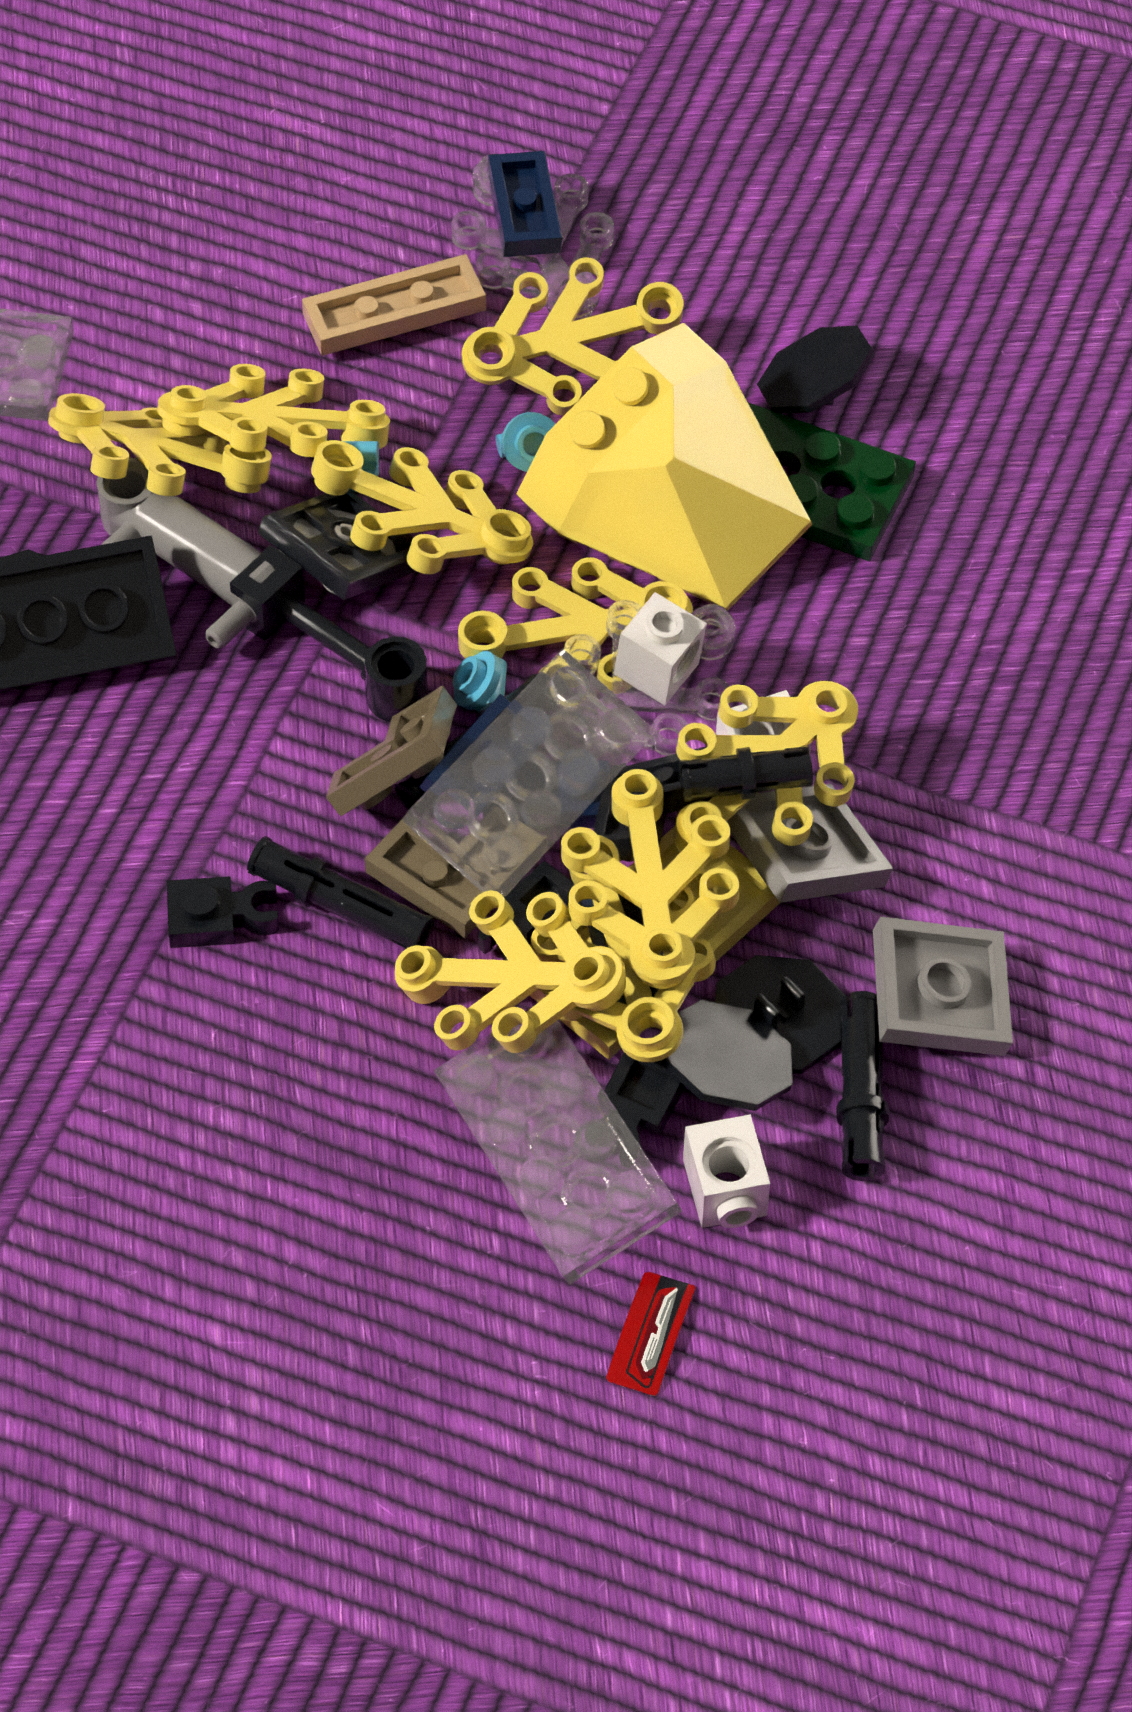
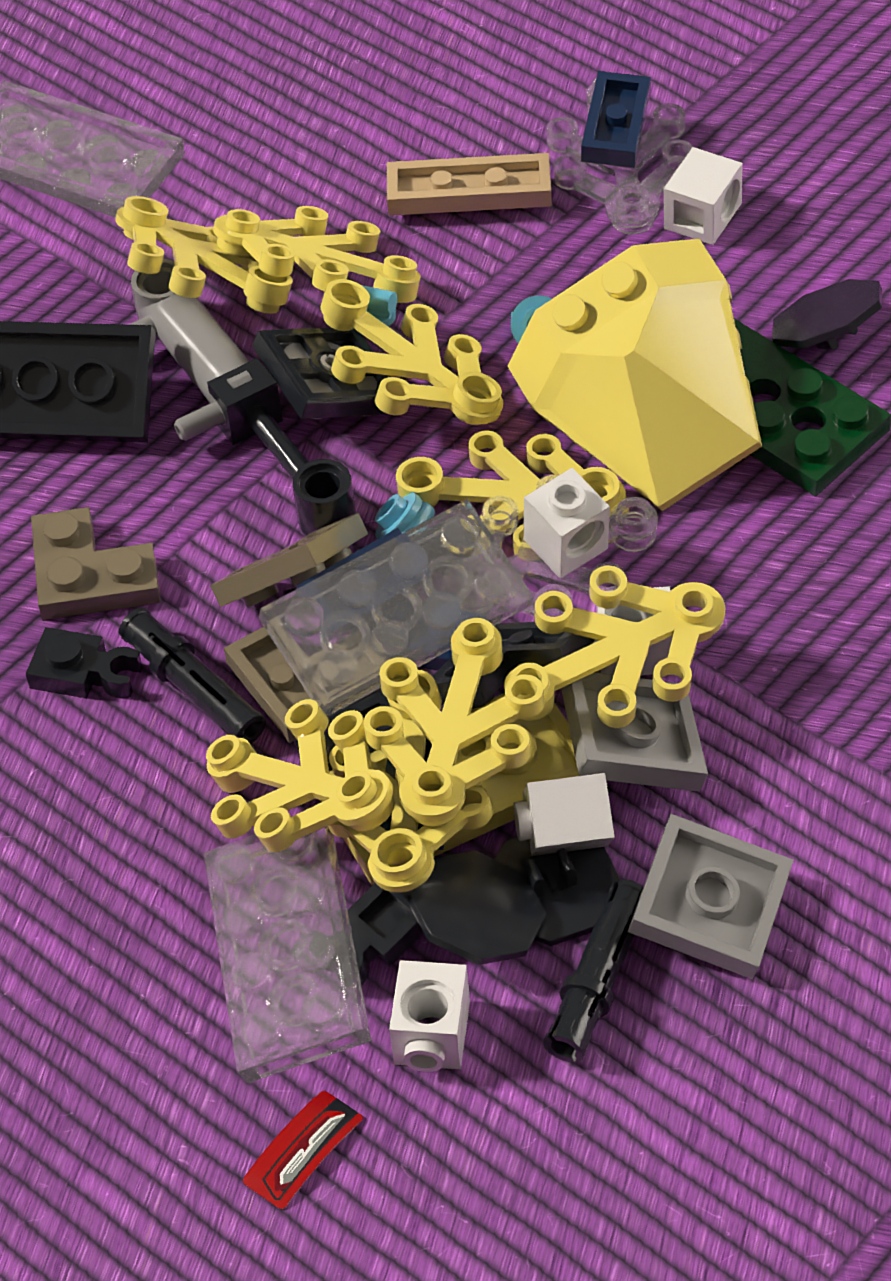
camera: 25 degrees right, 5 degrees down
(171, 821) = (78, 578): none -> dark tan plate
(561, 335) = (605, 234): light yellow plant -> none
(638, 257) = (702, 195): none -> white brick
(745, 773) = (583, 646): black pin -> none
(779, 943) = (565, 814): none -> white brick

